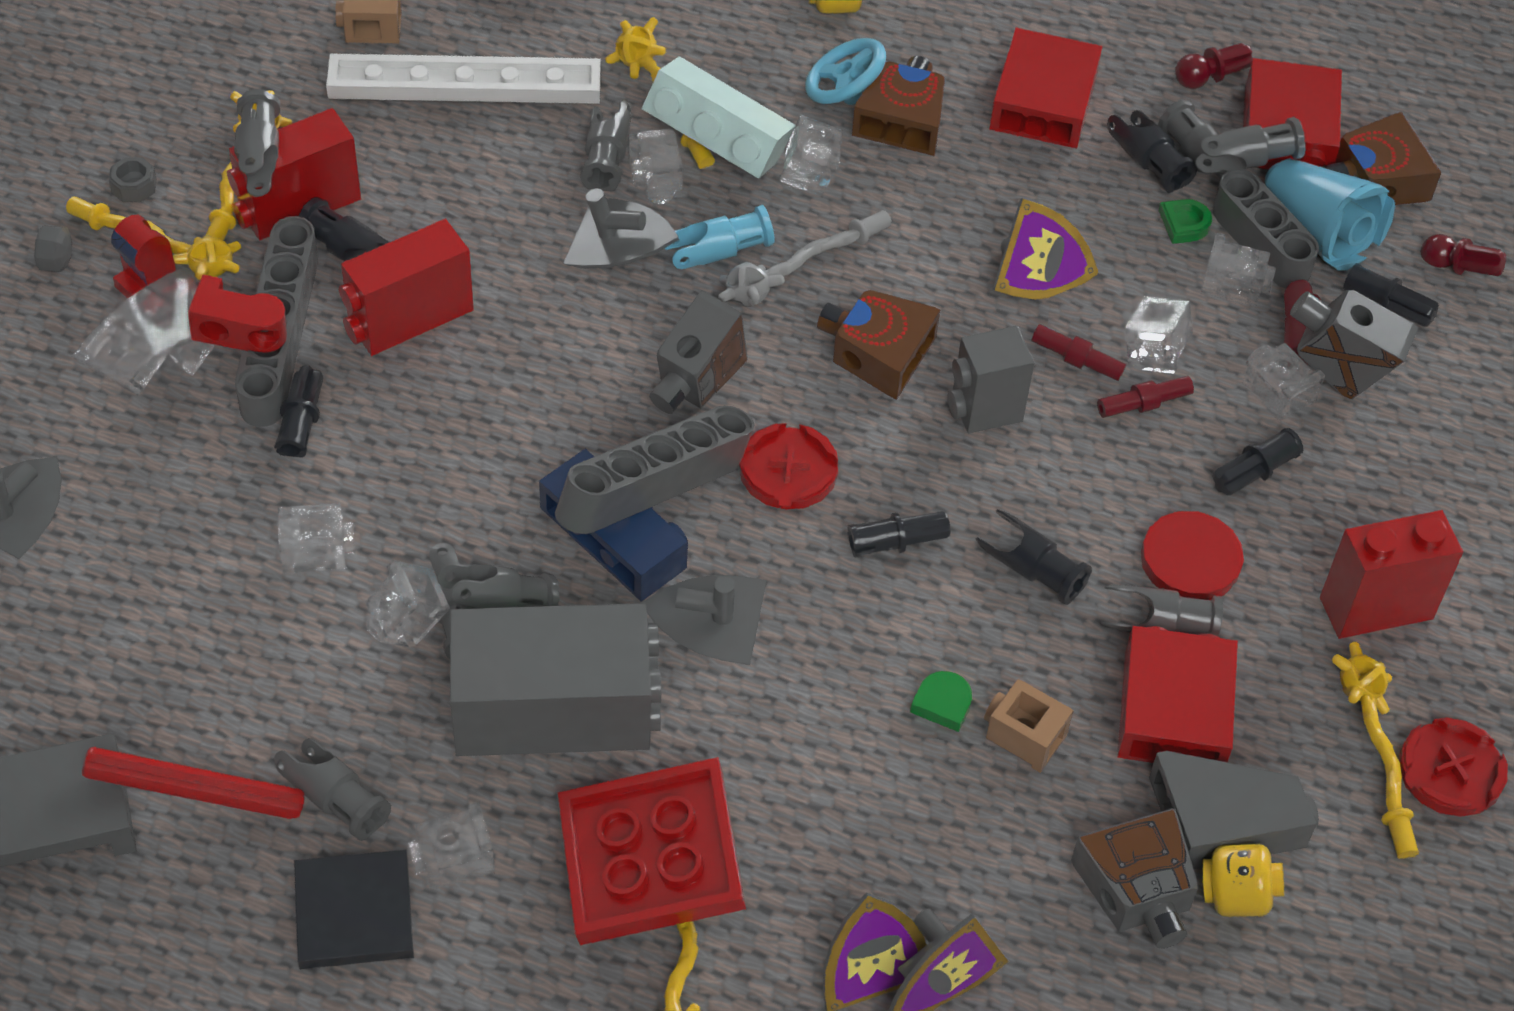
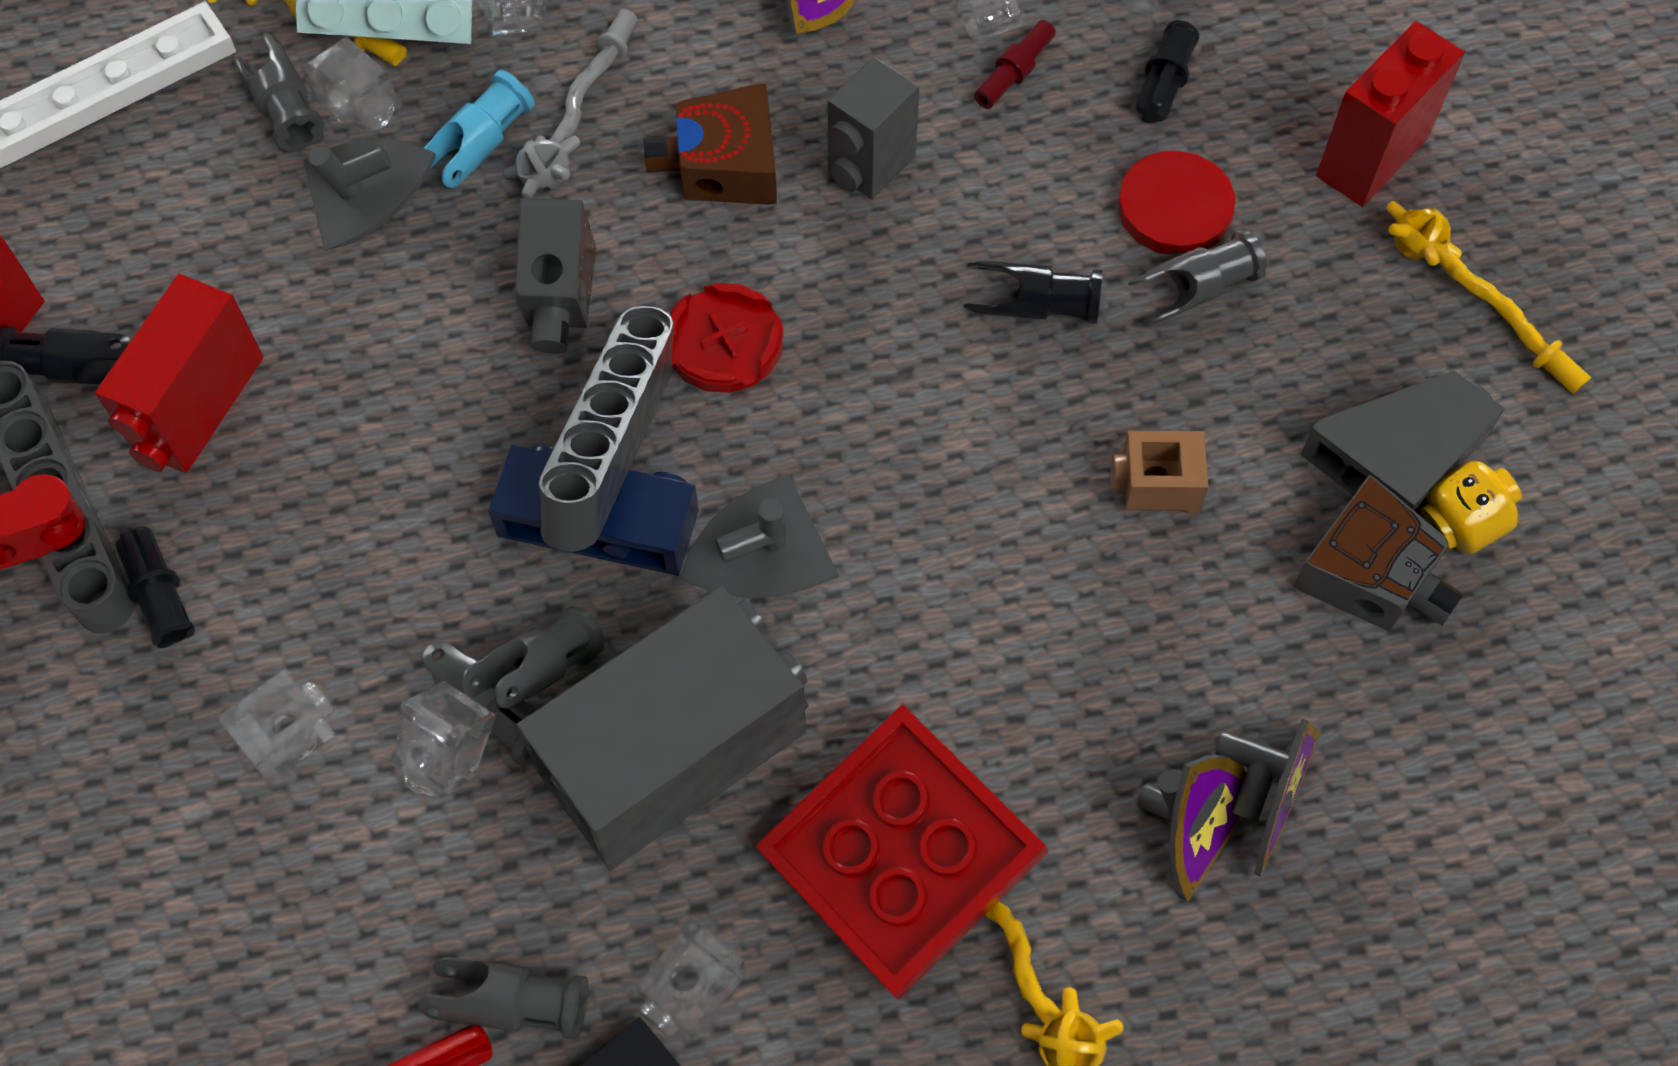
camera: 30 degrees left, 10 degrees up
(897, 532) = (885, 345): black axle -> none
(943, 699) = (1058, 495): green tile -> none
(1078, 352) = (922, 53): dark red bar -> none
(1177, 695) = (1277, 356): red brick -> none
(1453, 767) = (1555, 274): red tile -> none

